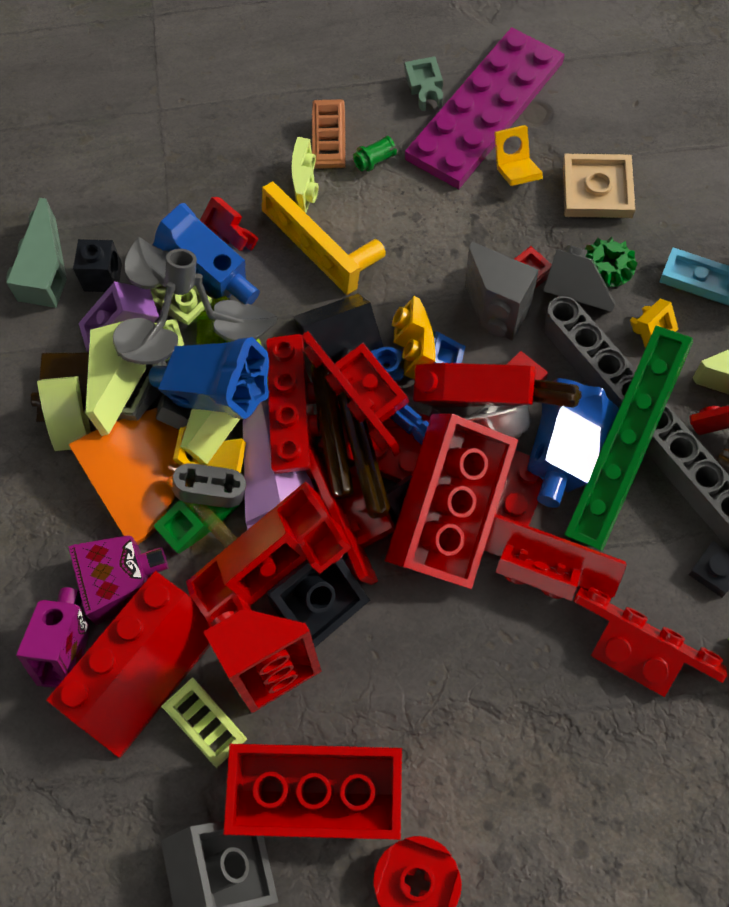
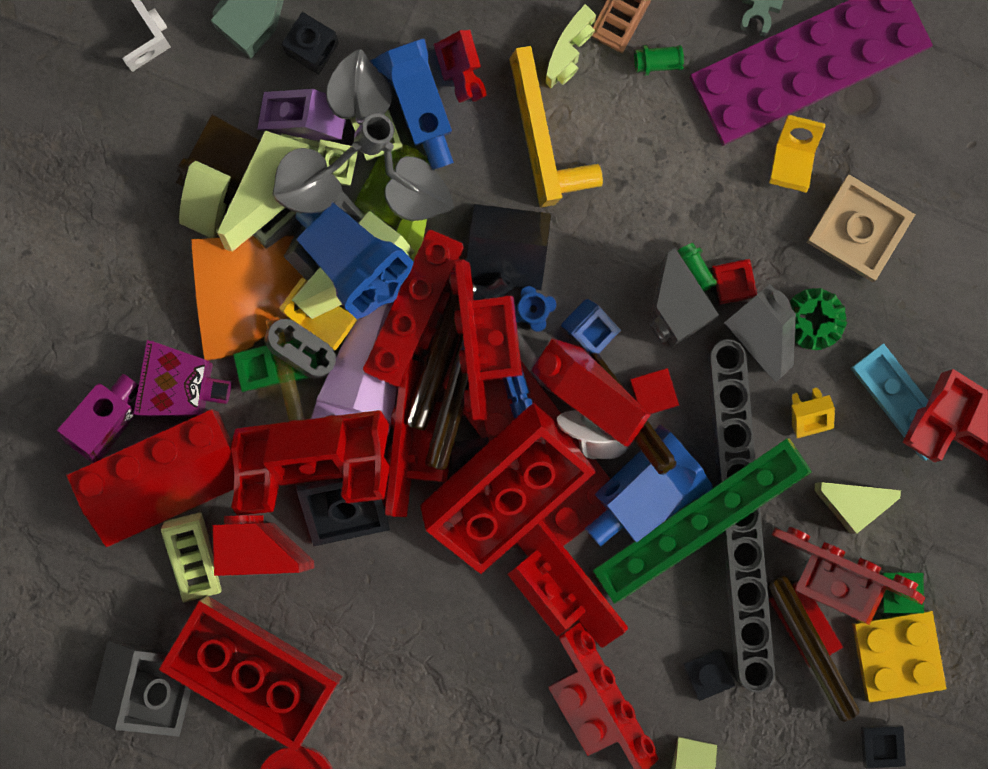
camera: 25 degrees right, 20 degrees up
(415, 334) = (577, 289): yellow slope -> none

